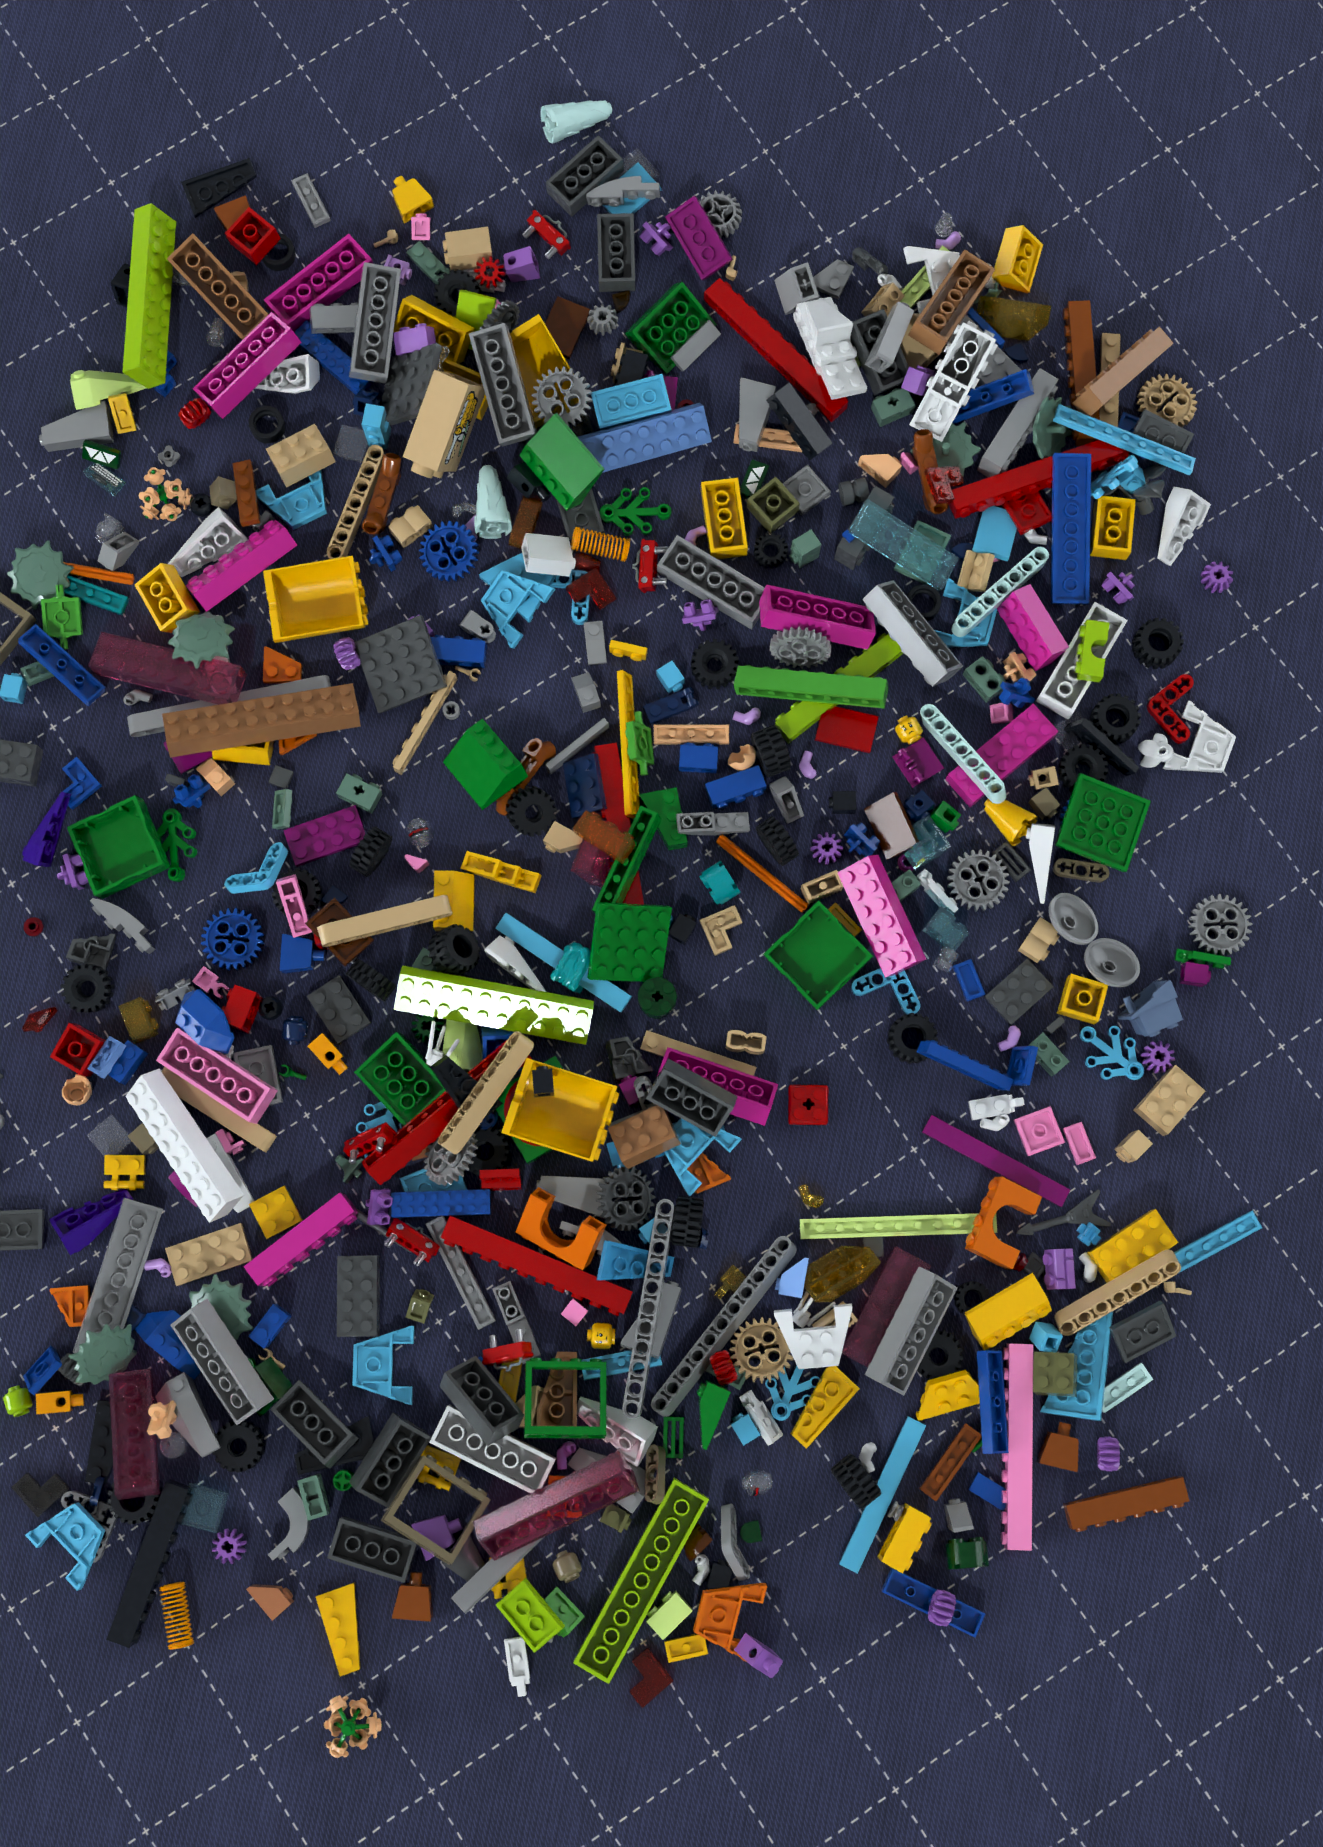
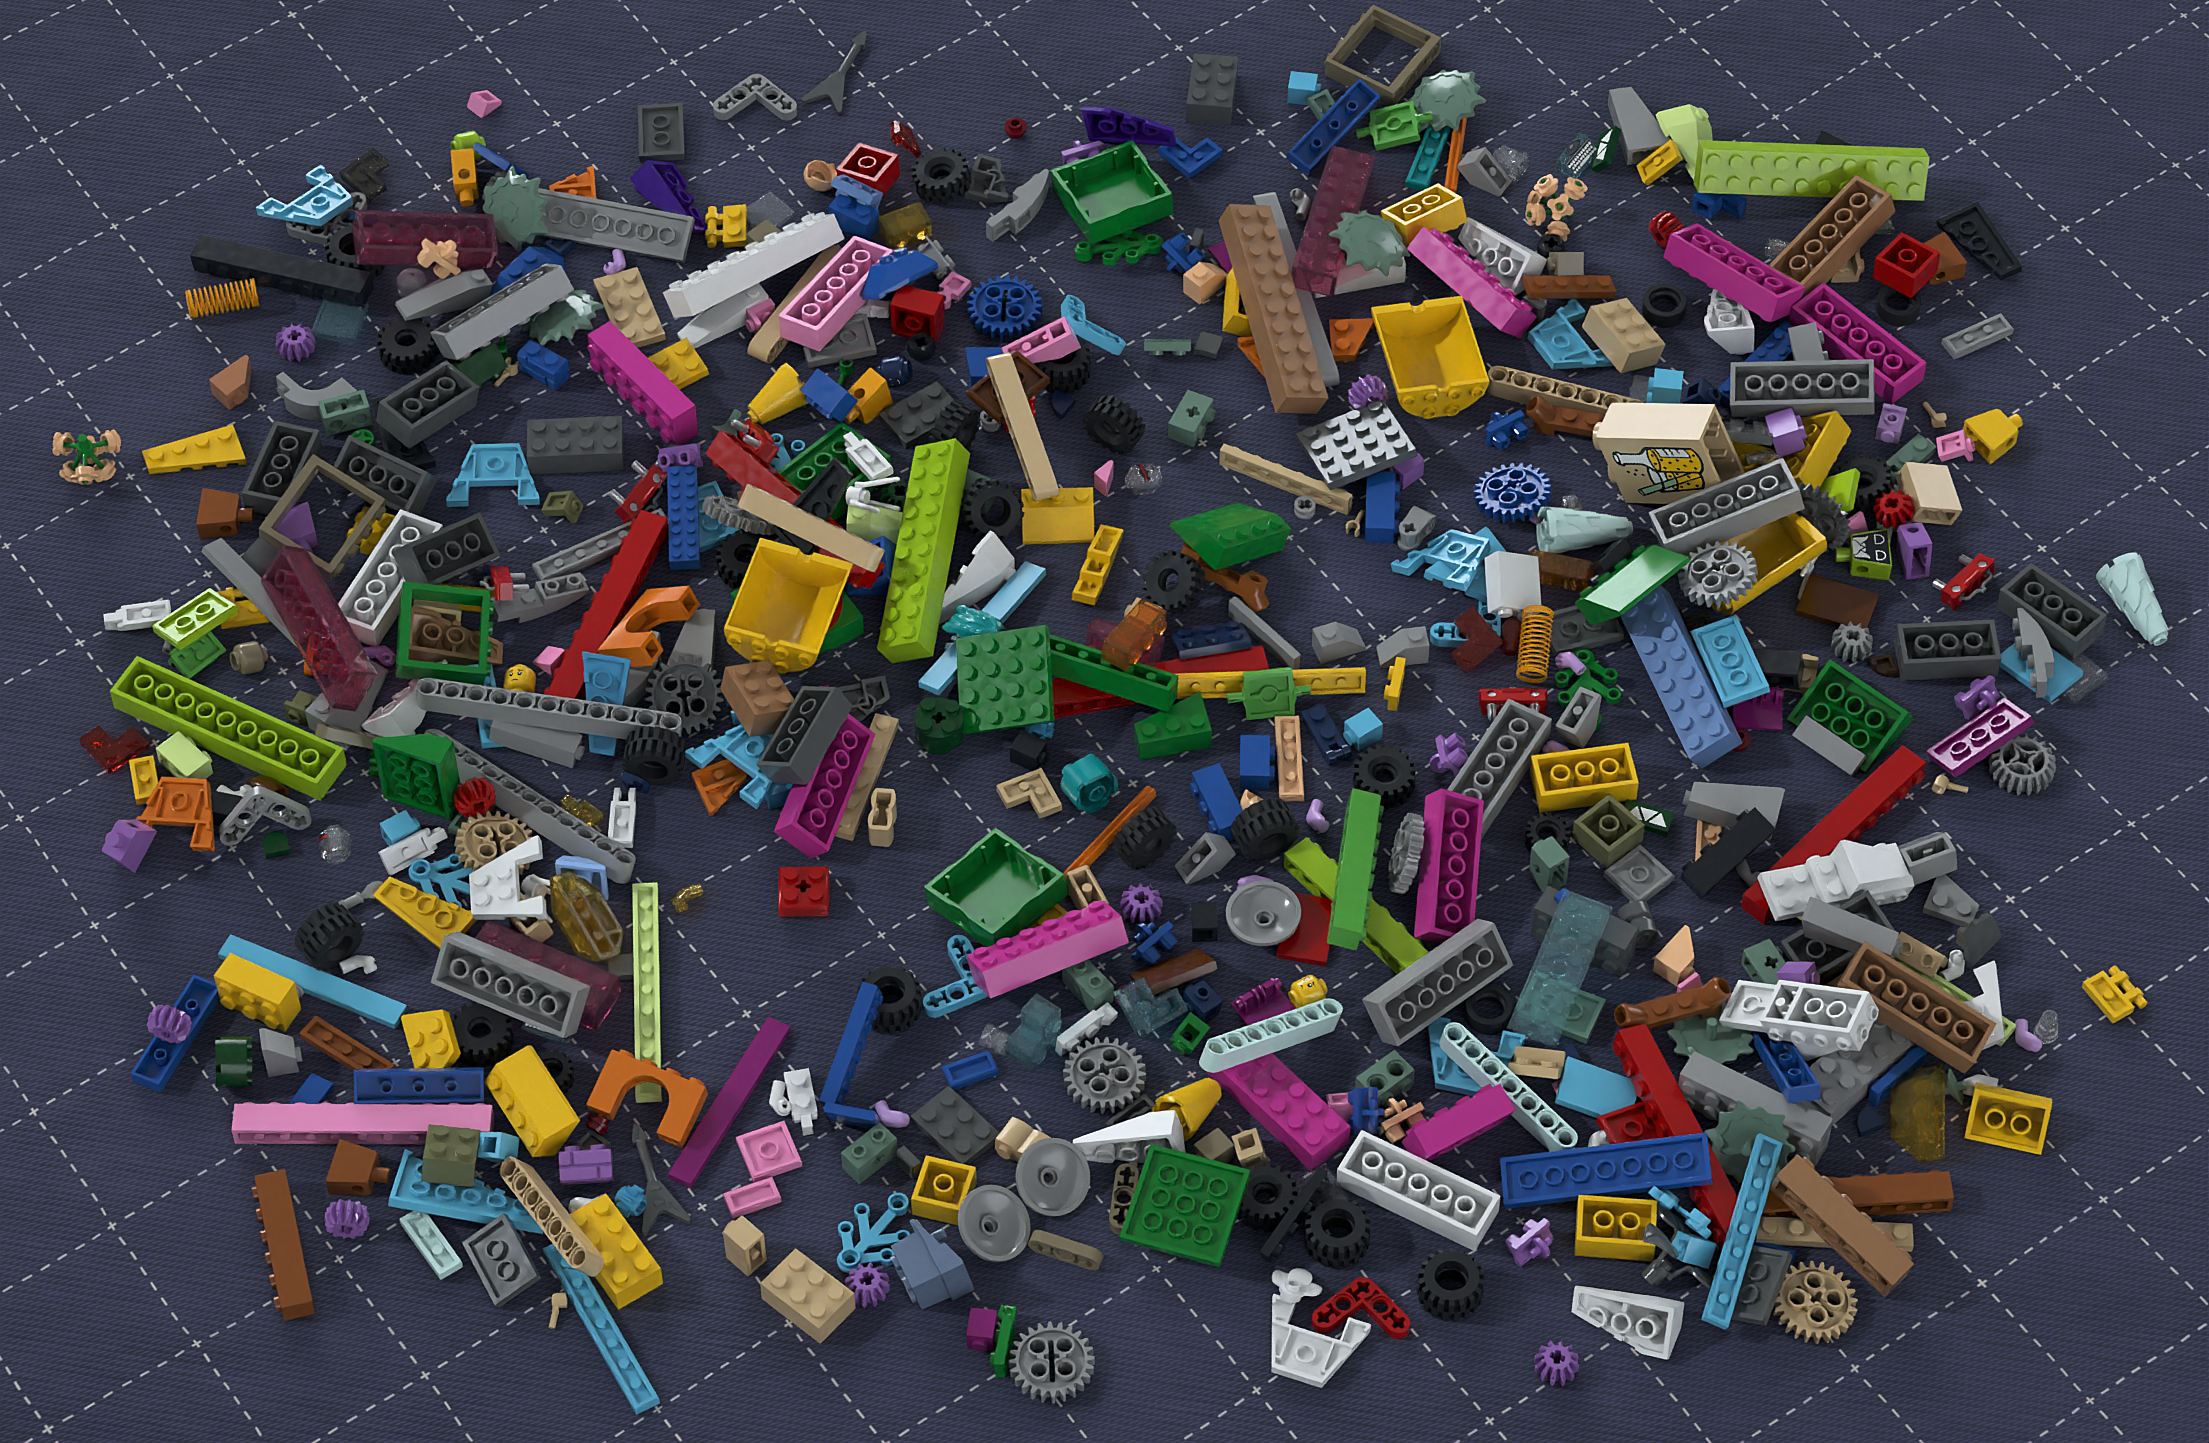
camera: 90 degrees right, 25 degrees down
(172, 459) = (1612, 215): light grey plate -> none
(319, 1125) = (778, 396): none -> yellow cone
(325, 835) = (1136, 383): magenta plate -> none
(331, 1080) = (828, 396): none -> blue brick
(402, 1049) = (867, 458): none -> white hinge
(410, 526) = (1543, 452): tan brick -> none
(501, 1179) = (710, 571): red slope -> none
(523, 294) = (1867, 554): none -> torso
(543, 1081) = (821, 574): black brick -> none
(613, 521) = (1567, 660): none -> lavender arm
(671, 515) = (1580, 717): none -> light grey slope
(712, 824) = (1167, 771): light grey slope -> none
(736, 1248) = (622, 818): none -> white hinge
(798, 1450) = (358, 898): none -> light grey piece
(842, 744) = (1263, 903): none -> light grey dish
(916, 183) = (2110, 998): none -> yellow plate
(941, 480) = (1660, 1010): clear red plate -> none
(1089, 666) = (1405, 1177): lime arch -> none
(1127, 912) = (1065, 1250): none -> dark tan beam

